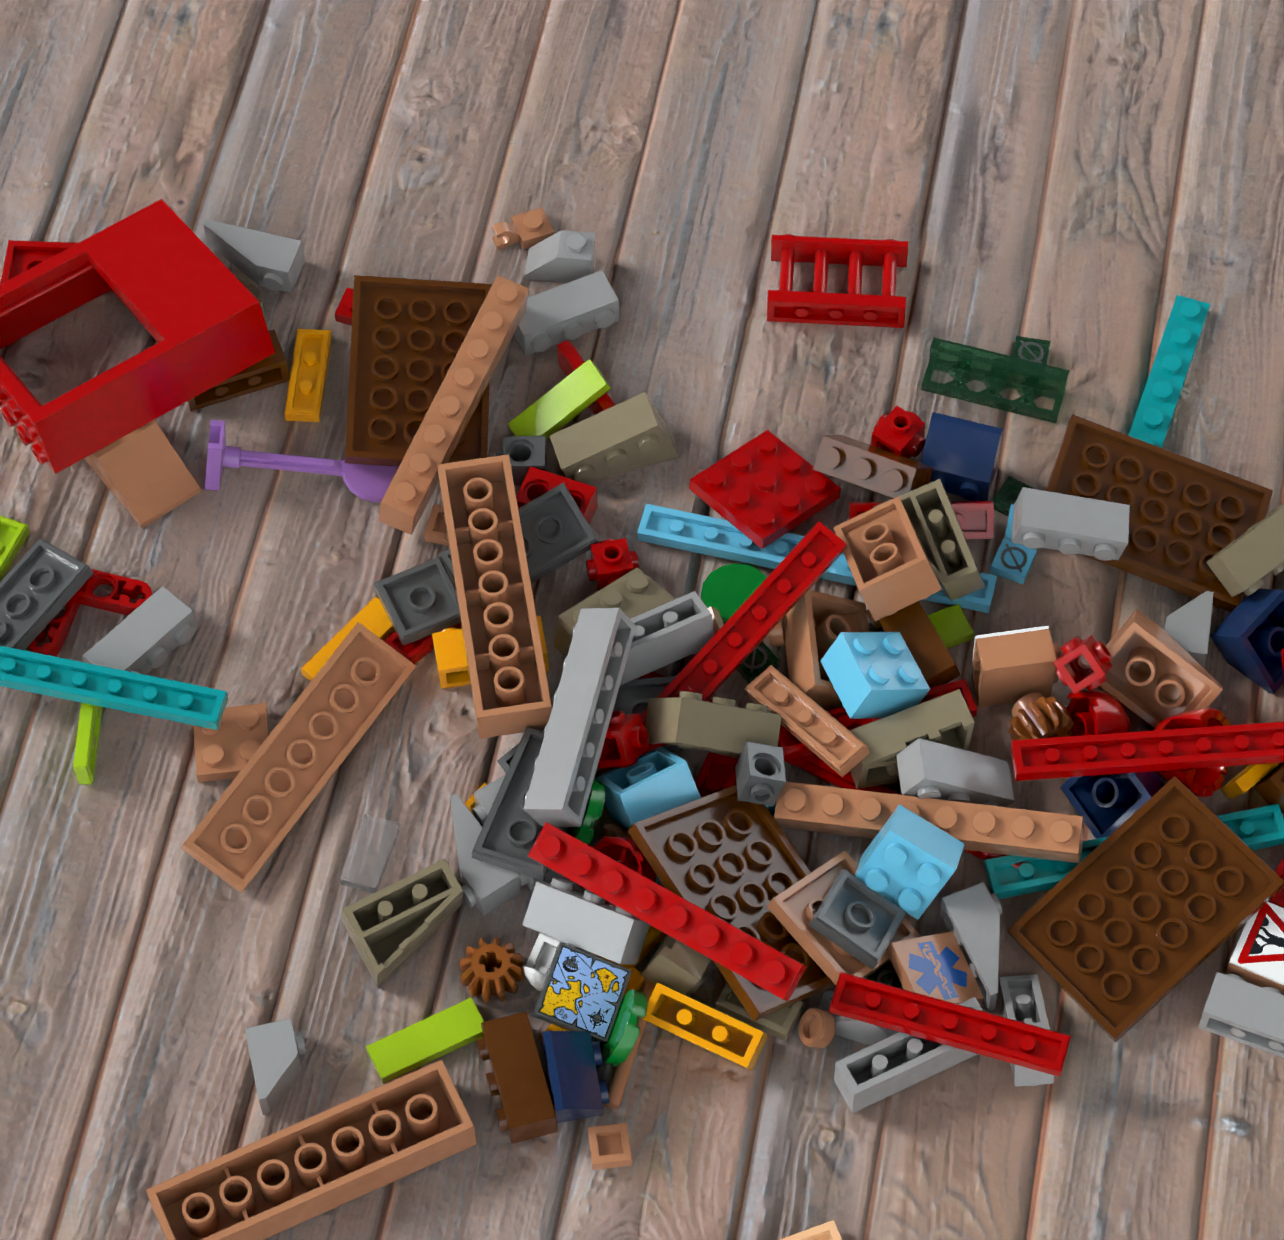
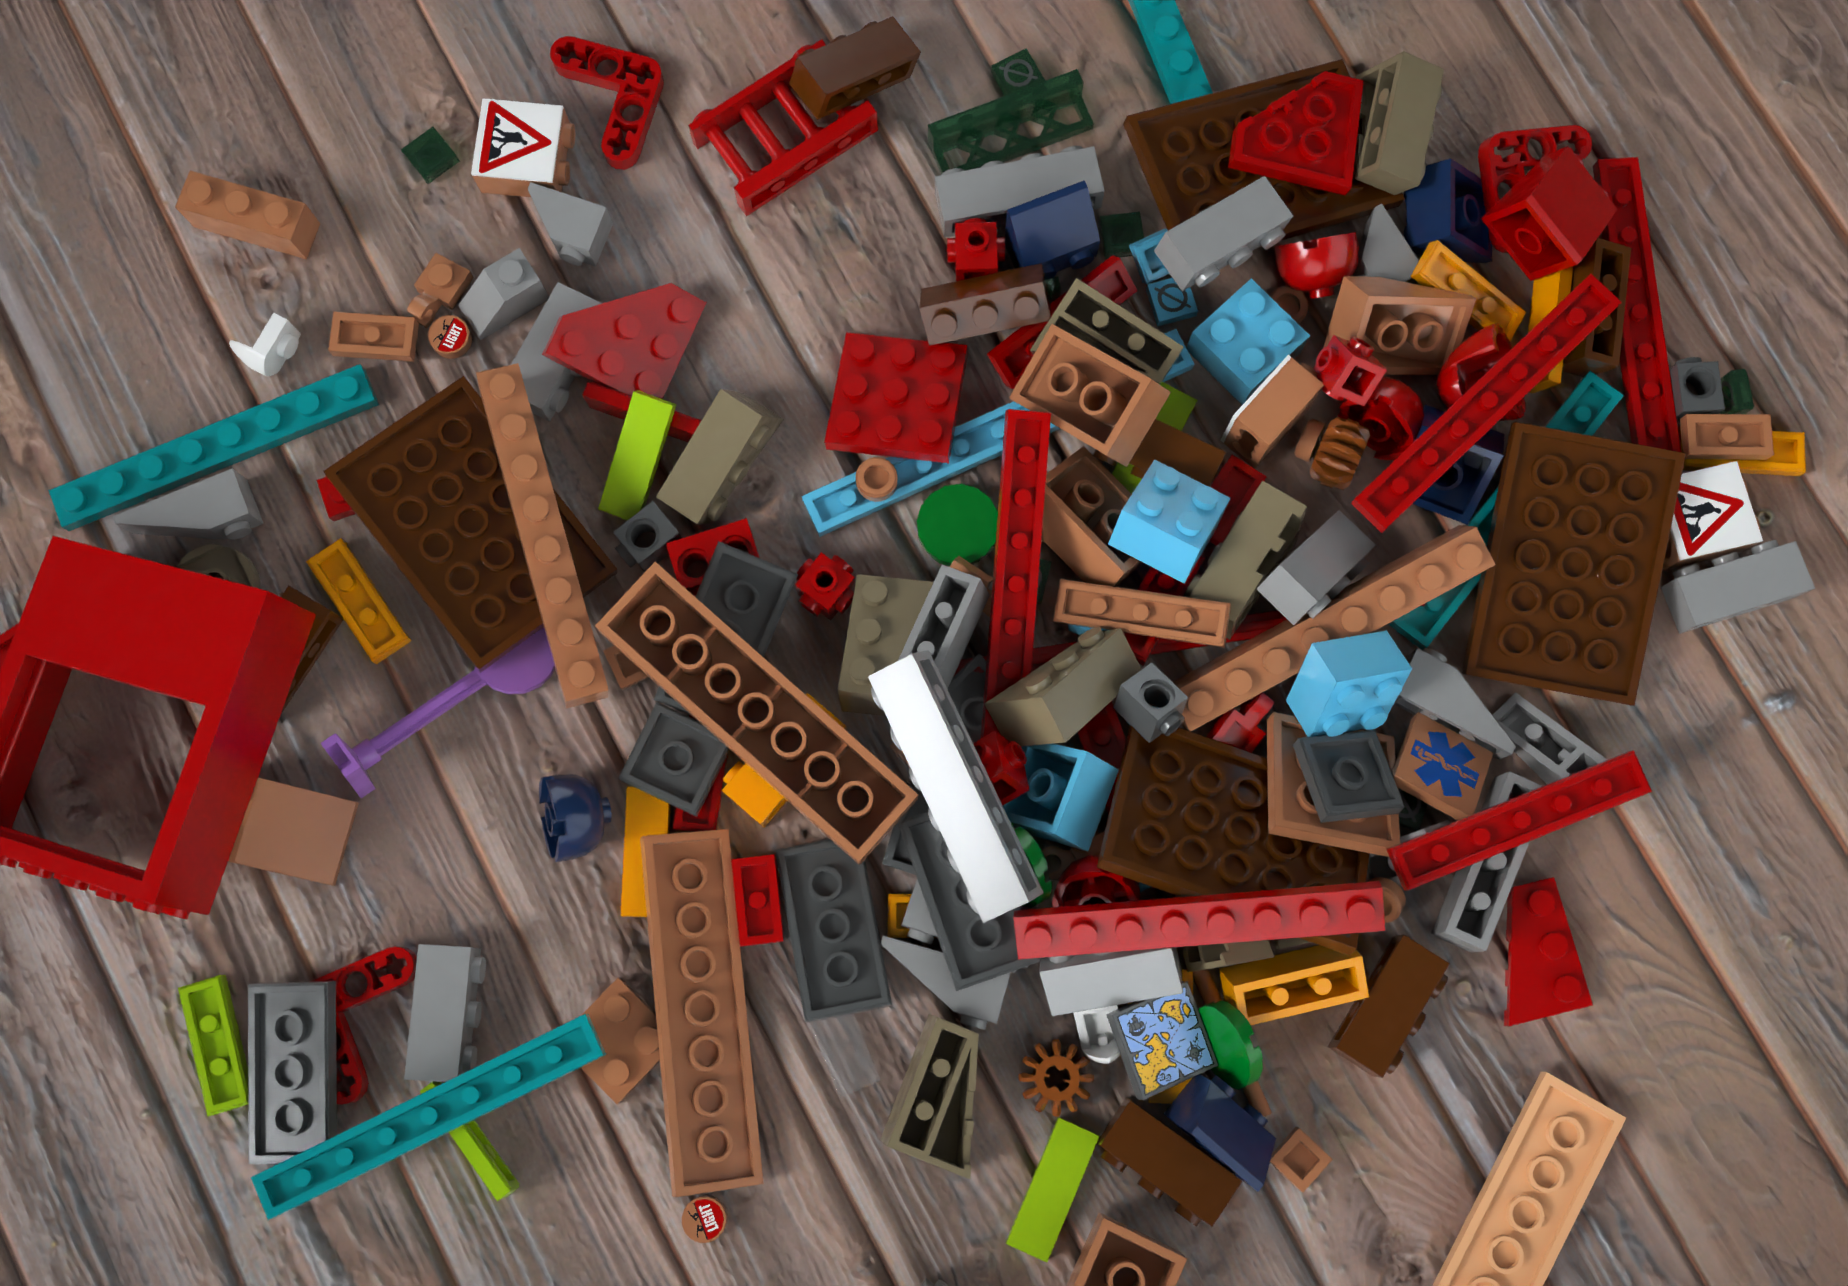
camera: 40 degrees left, 20 degrees up
(188, 886) = (704, 1219): none -> tile
(313, 229) = (213, 447): none -> teal plate
(326, 584) = (572, 815): none -> dark blue cylinder
(390, 192) = (275, 345): none -> white plate
(396, 723) = (757, 900): none -> red plate
(428, 770) = (832, 931): none -> dark grey tile
(444, 109) = (248, 214): none -> nougat brick
(458, 229) = (373, 336): none -> nougat plate
(506, 262) = (450, 336): none -> tile
(591, 151) = (430, 155): none -> clear green tile
(618, 334) = (628, 340): none -> red plate
(644, 248) = (573, 224): none -> light grey slope
(652, 183) = (521, 146): none -> piece
(704, 525) = (876, 479): none -> nougat tile
(754, 196) = (629, 91): none -> red beam
(760, 1097) = (1397, 995): none -> reddish brown brick
(816, 851) = (1241, 727): none -> red plate
(900, 1154) = (1542, 957): none -> red wing
(915, 272) = (854, 67): none -> reddish brown brick
(925, 395) = (1001, 185): none -> light grey brick
(1041, 602) = (1246, 340): none -> medium azure brick
(1092, 620) = (1292, 302): none -> nougat tile
(1125, 594) = (1318, 263): none -> red cylinder
(1191, 510) = (1304, 135): none -> red plate
(1222, 664) = (1446, 271): none -> light orange tile

